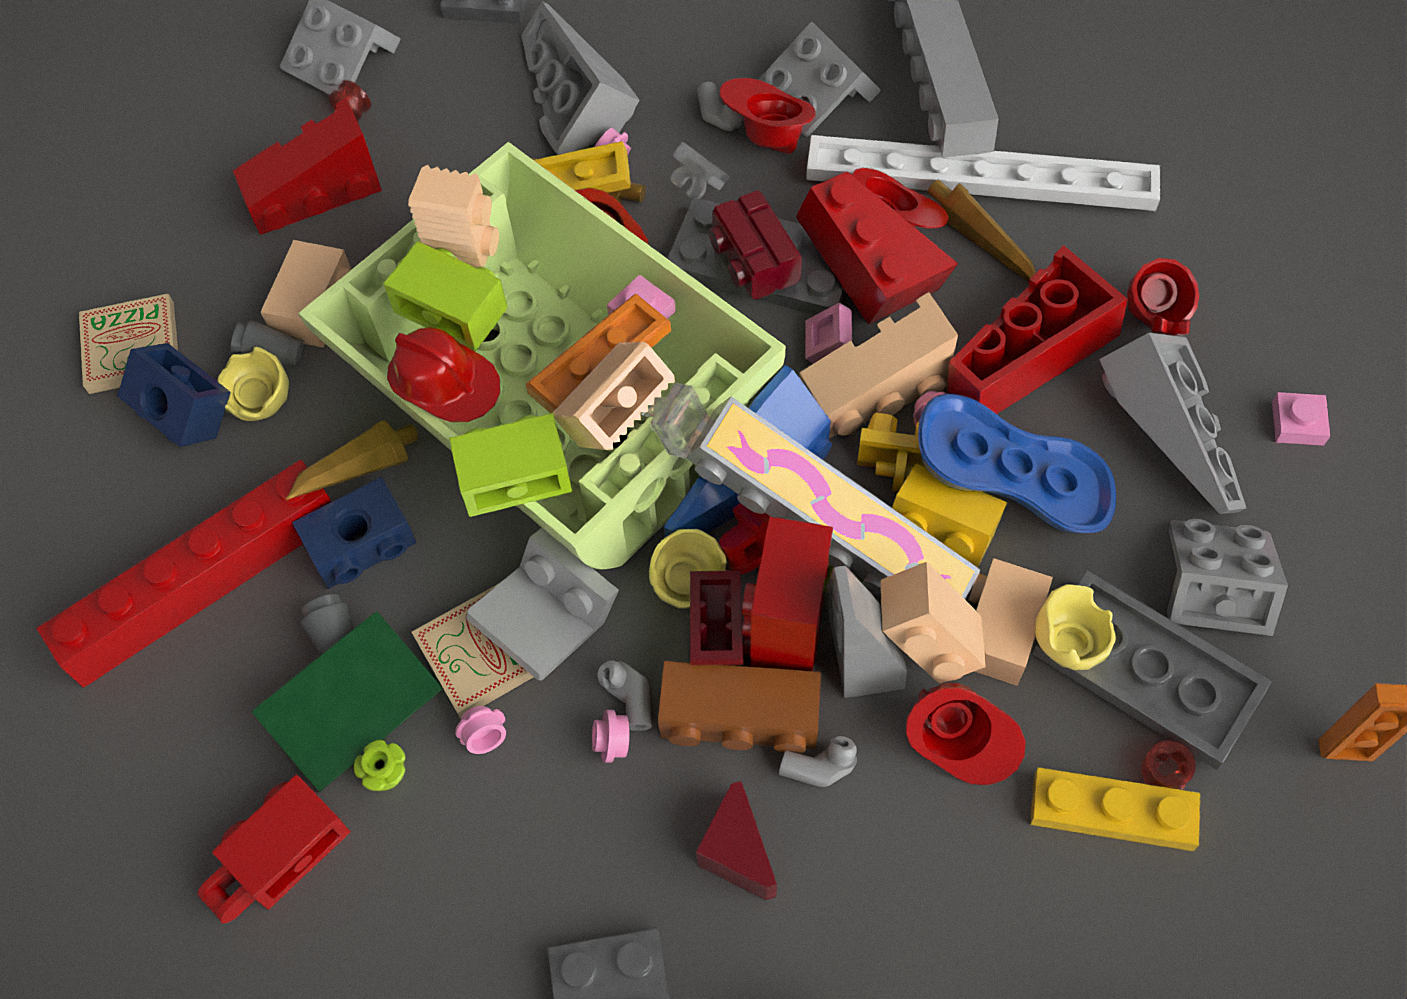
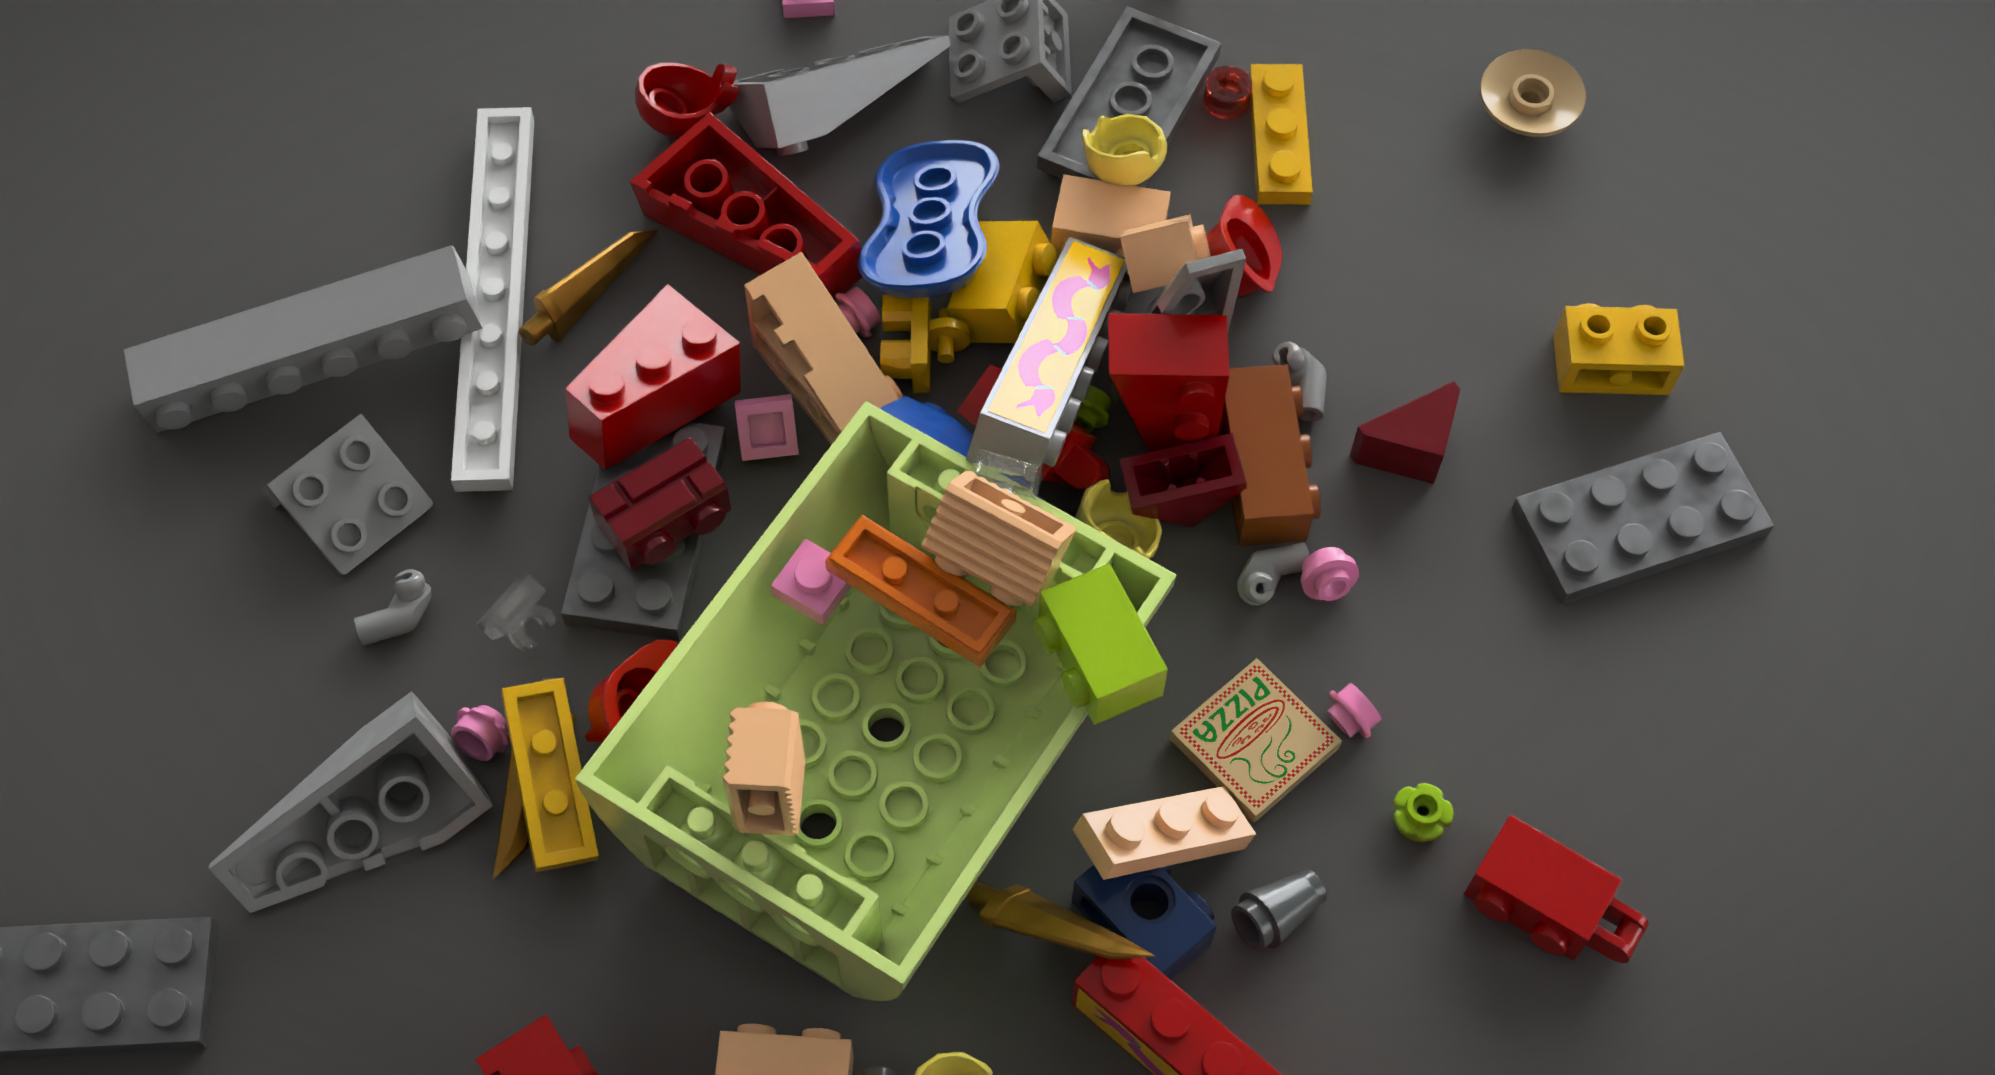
camera: 105 degrees left, 0 degrees up
(347, 700) = (1362, 860): dark green tile -> none
(402, 547) = (1163, 832): none -> light nougat plate
(443, 376) = (977, 769): red piece -> none
(446, 294) = (866, 774): lime brick -> none
(544, 606) = (1213, 667): light grey bracket -> none
(769, 114) = (419, 529): red piece -> none
(908, 203) = (560, 361): red piece -> none

